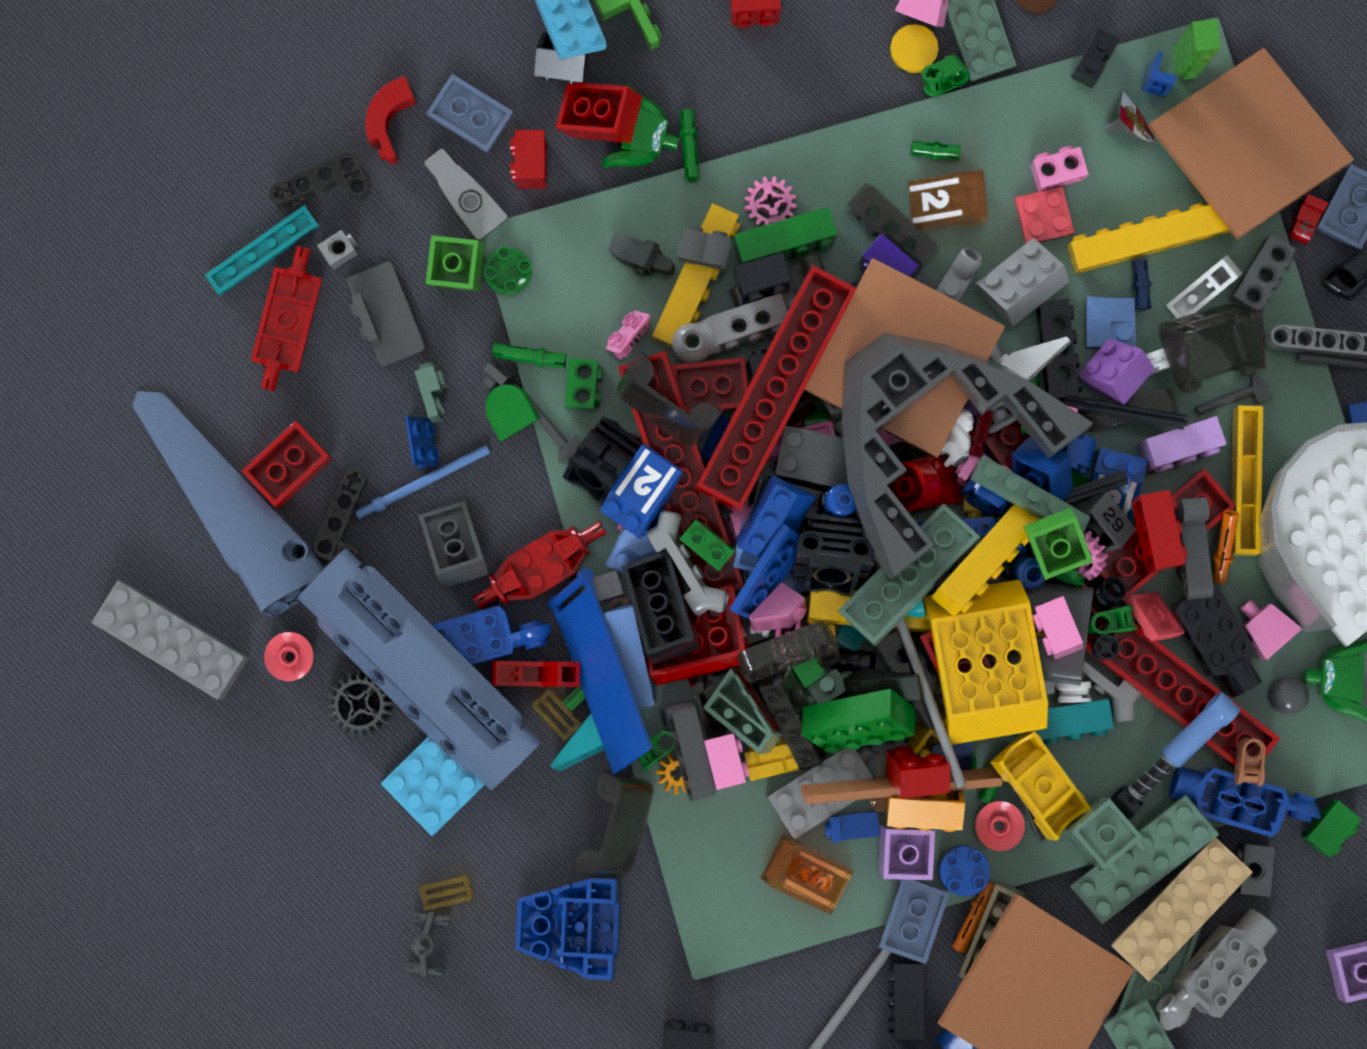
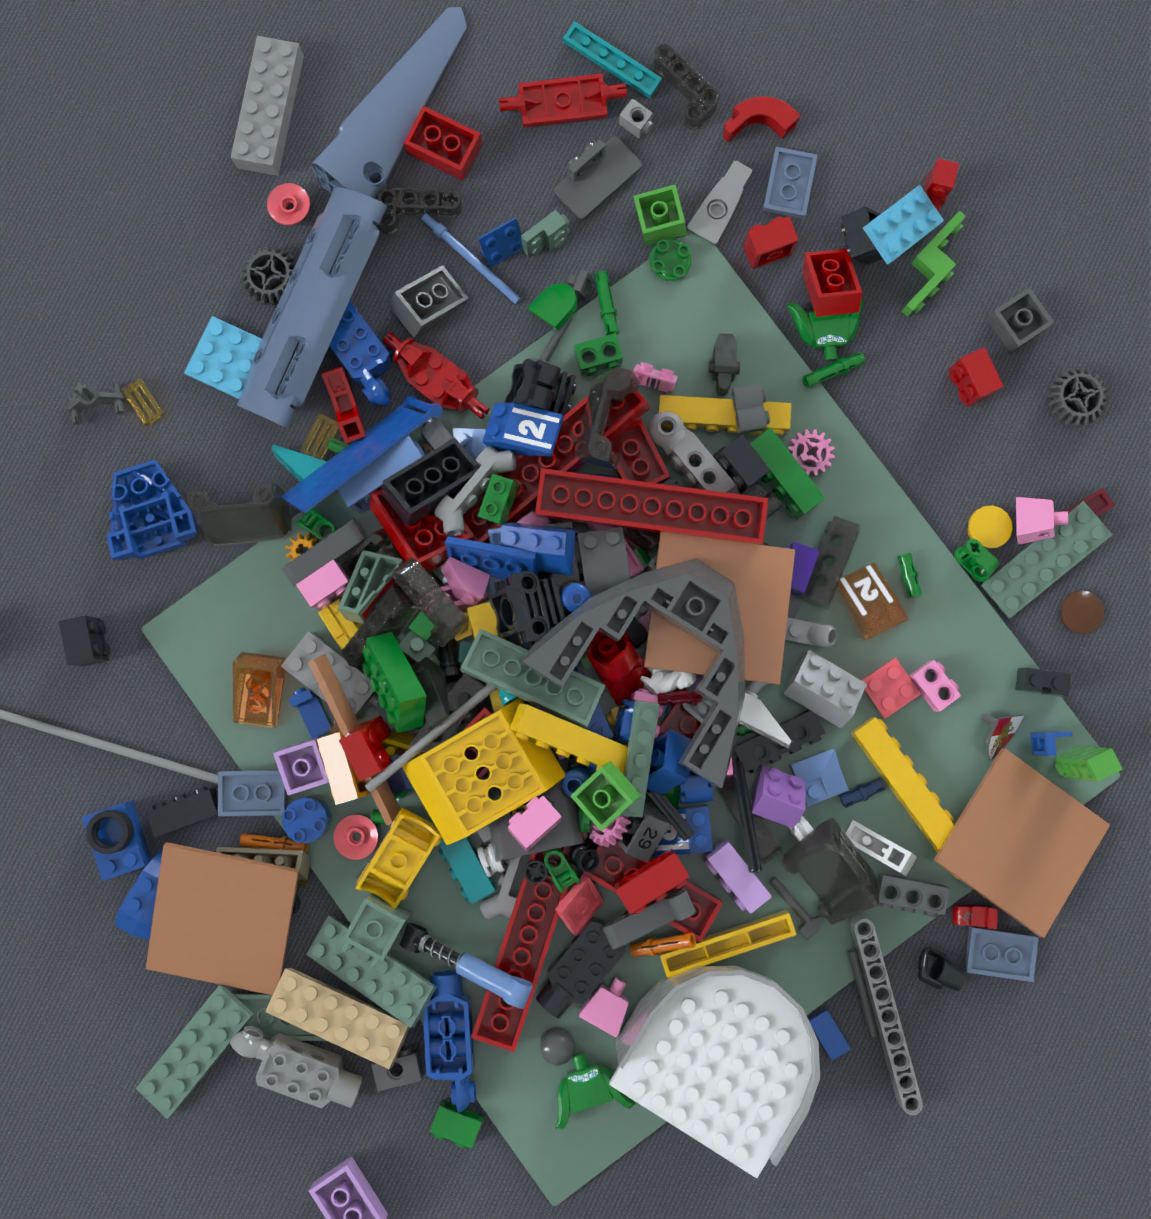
camera: 75 degrees right, 0 degrees up
(1250, 764) = (478, 1035): nougat piece -> none

